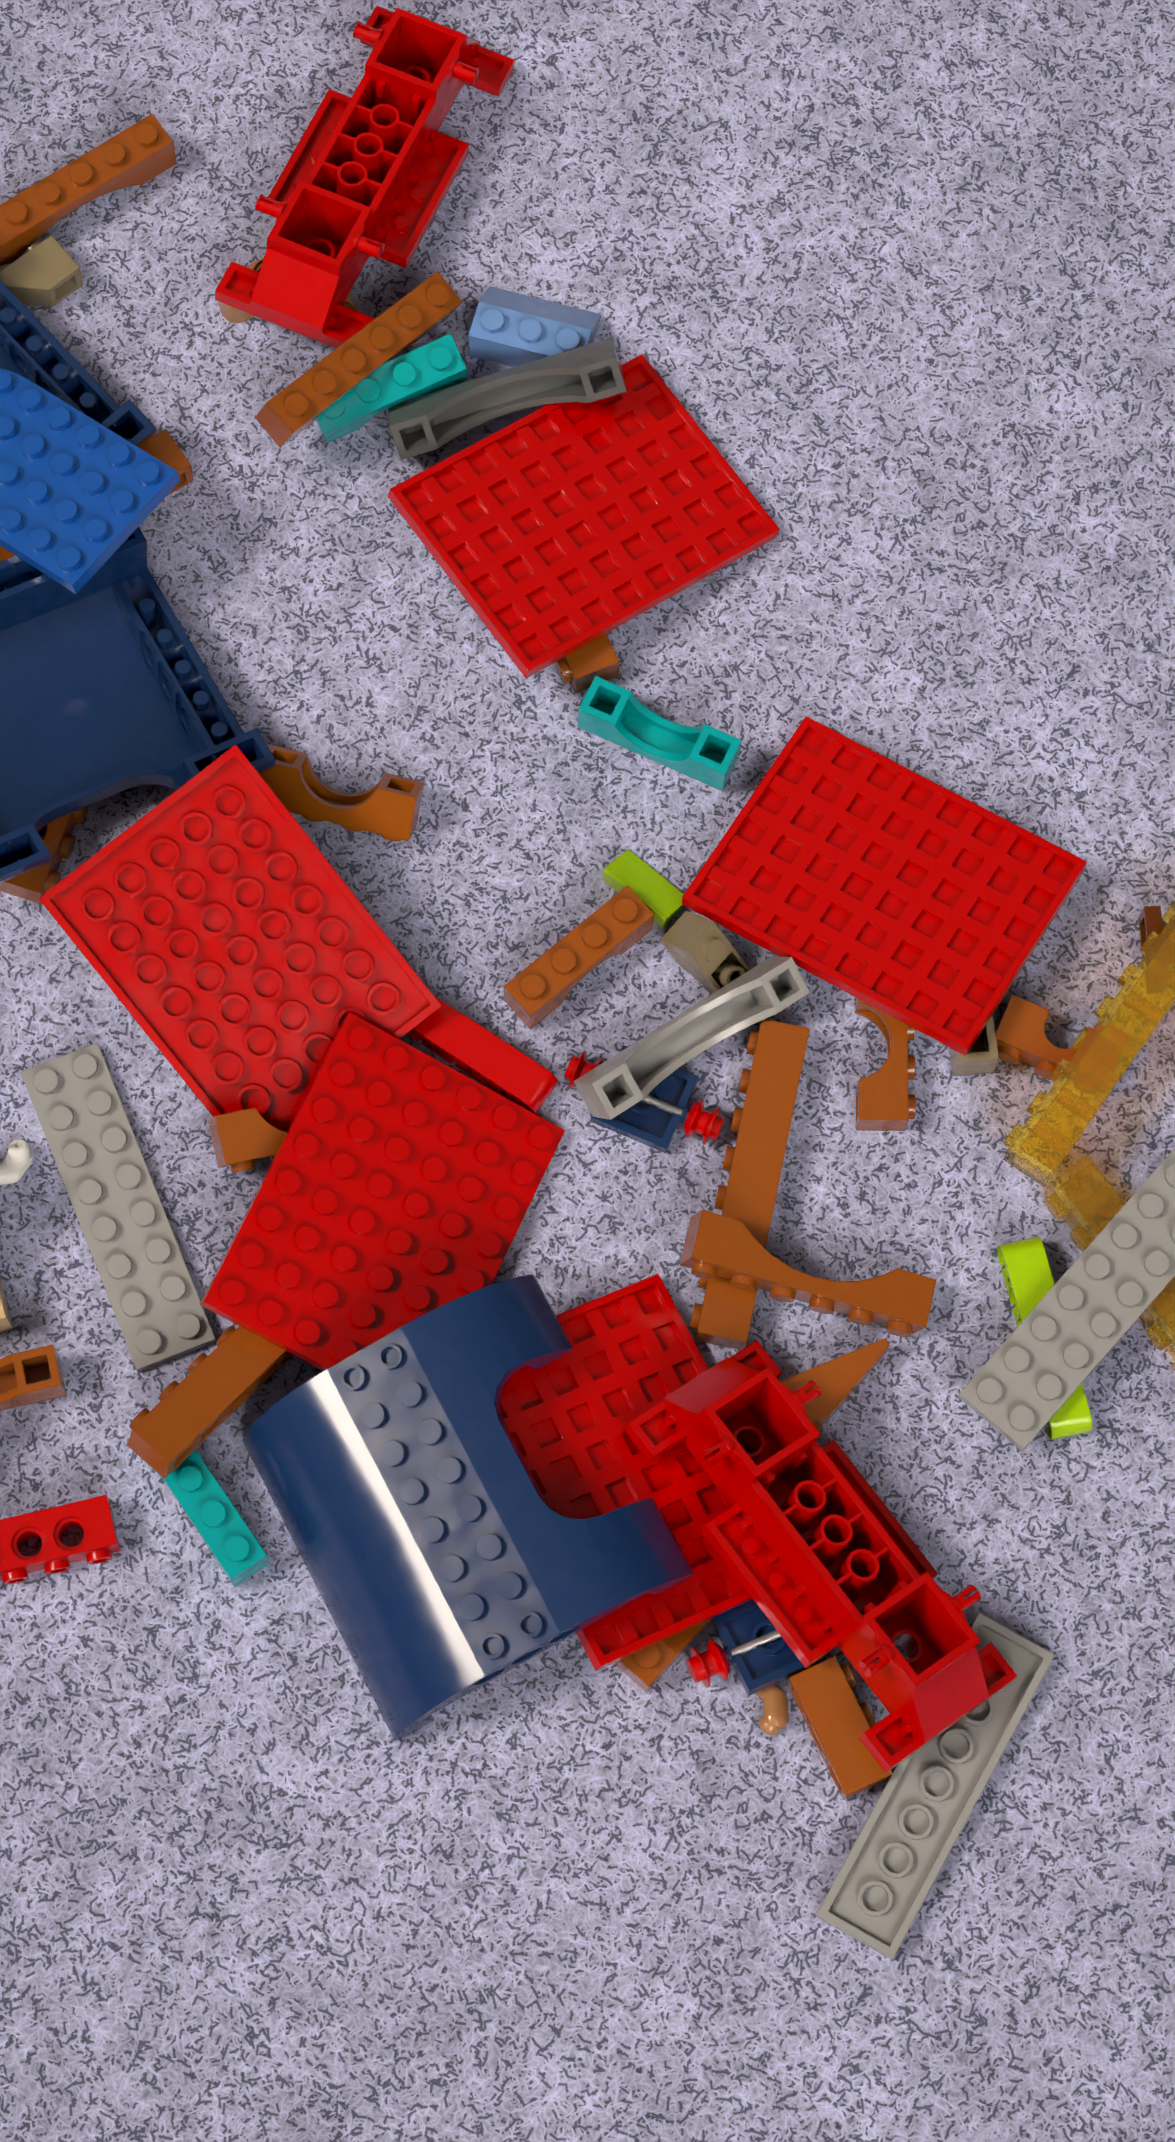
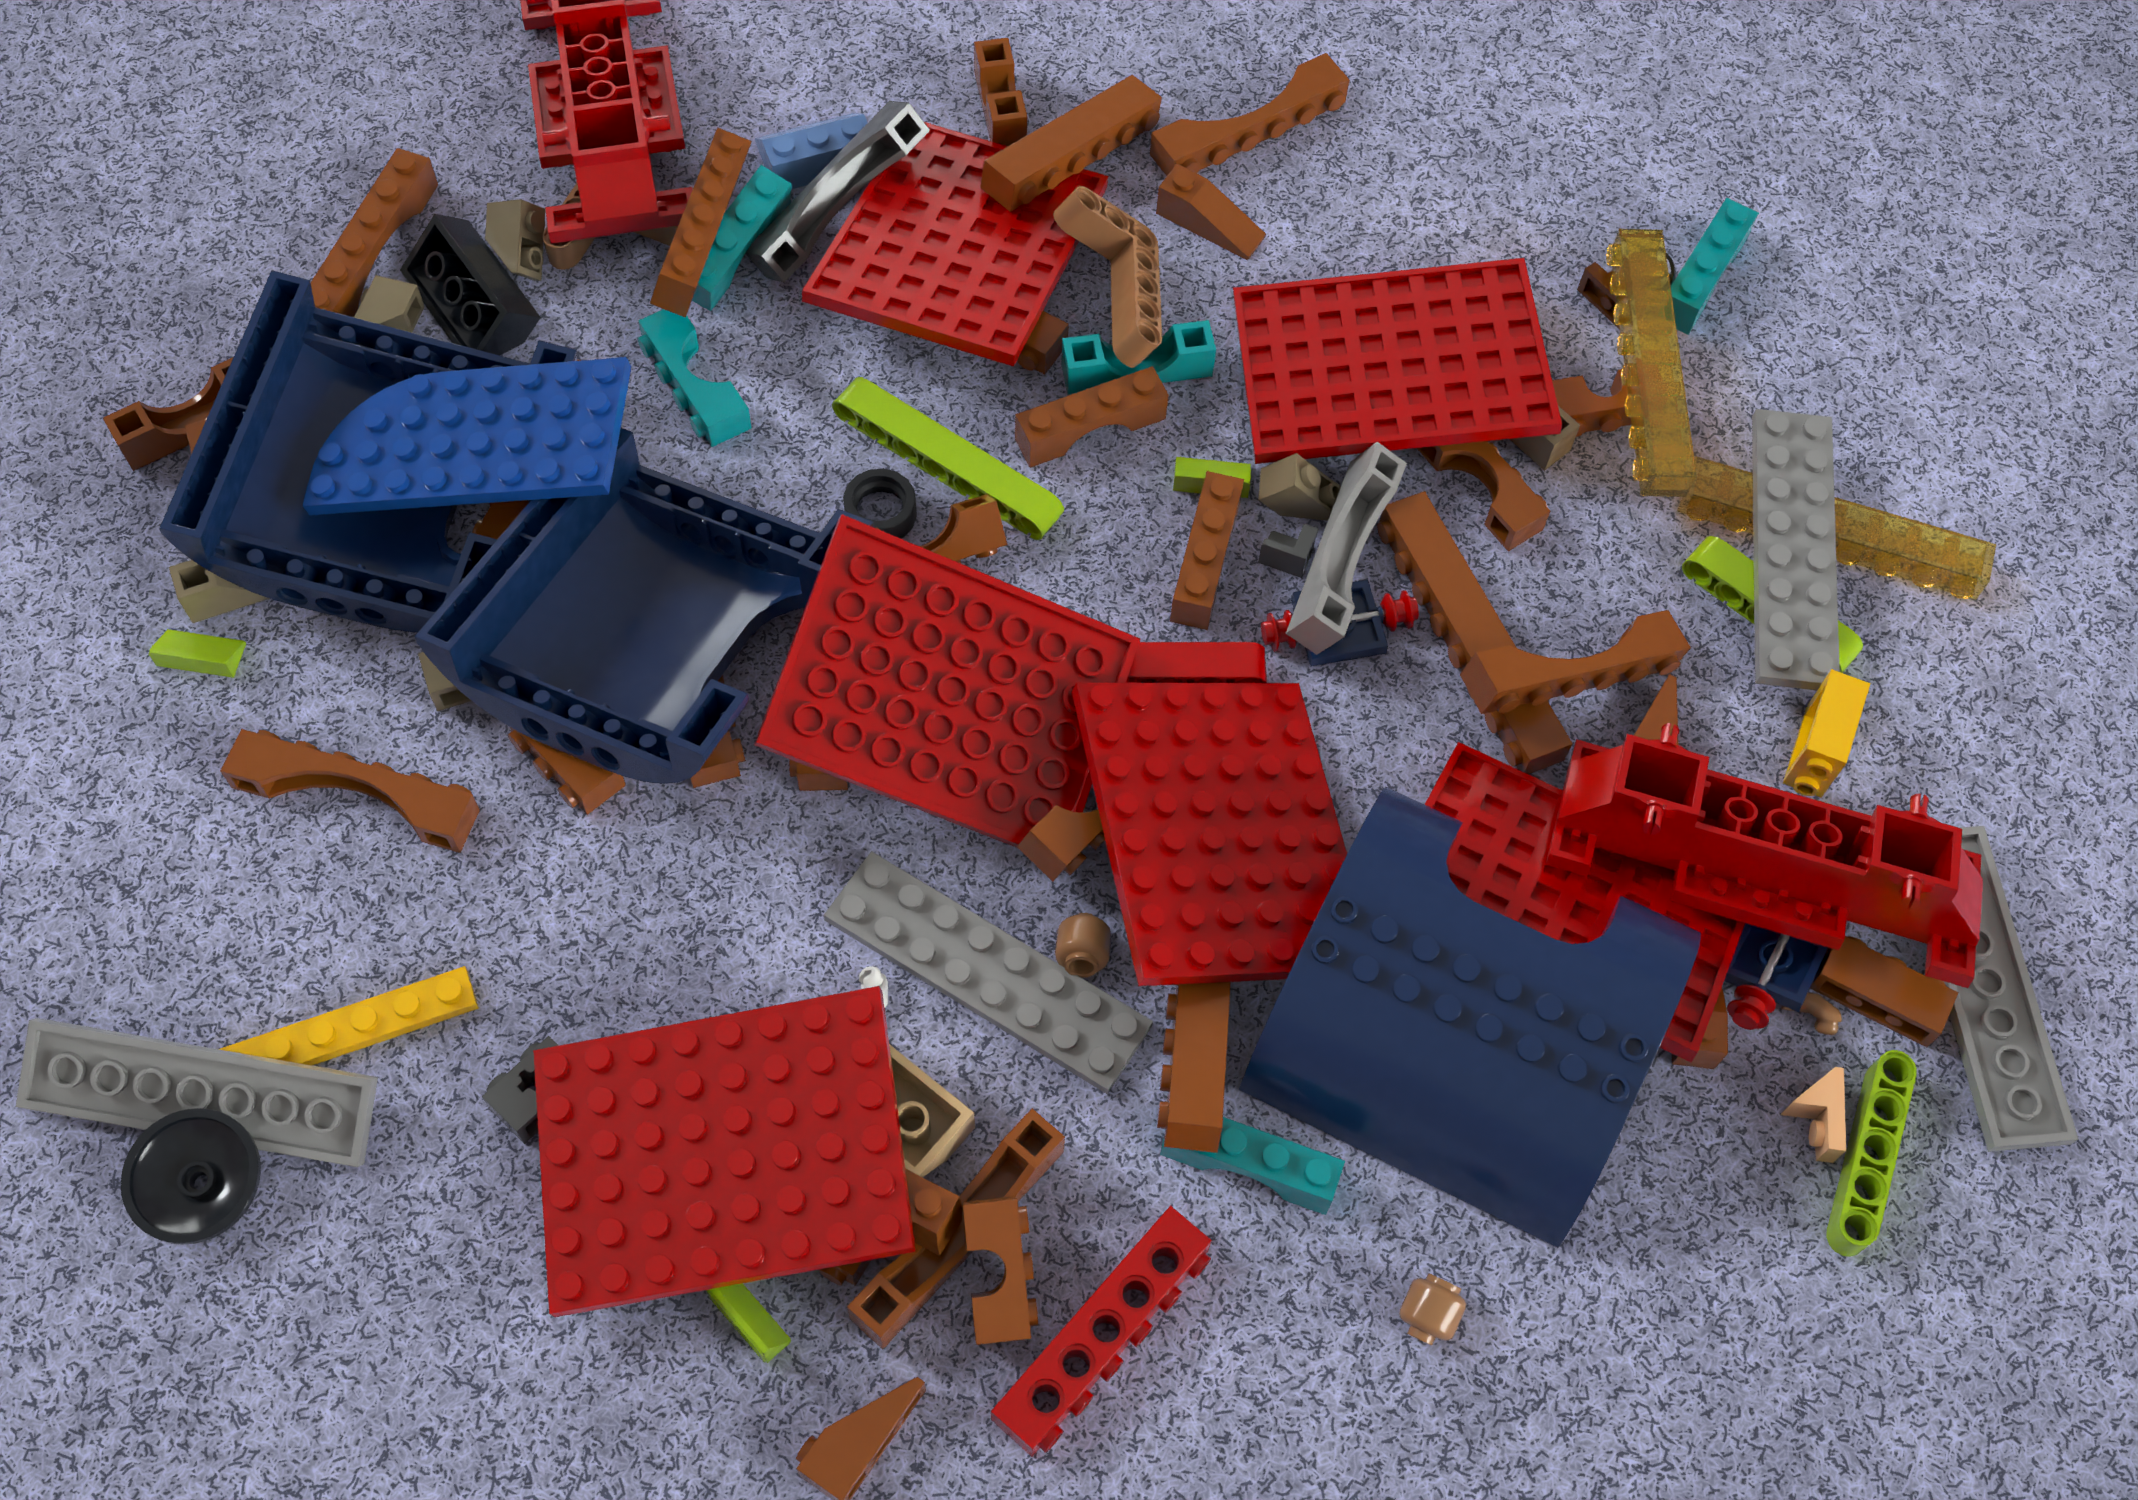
camera: 35 degrees left, 10 degrees down
(126, 295) = (468, 288): none -> black slope
(197, 269) = (516, 236): none -> dark tan slope
(205, 1237) = (1083, 944): none -> medium nougat head
(252, 1716) = (1432, 1309): none -> medium nougat head
(256, 546) = (714, 406): none -> teal arch
(331, 703) = (884, 481): none -> black tyre
(423, 723) = (947, 455): none -> lime beam
(540, 755) = (1055, 426): none -> dark orange arch
(654, 1002) = (1289, 553): none -> dark grey panel
(706, 1779) = (1826, 1105): none -> light nougat slope
(725, 1831) = (1862, 1169): none -> lime beam
(735, 627) = (1134, 269): none -> medium nougat beam
(742, 382) = (1000, 101): none -> dark orange arch
(764, 476) = (1070, 143): none -> dark orange brick
(844, 626) = (1206, 211): none -> dark orange slope
(882, 545) = (1198, 144): none -> dark orange arch
(976, 1483) = (1826, 734): none -> yellow window

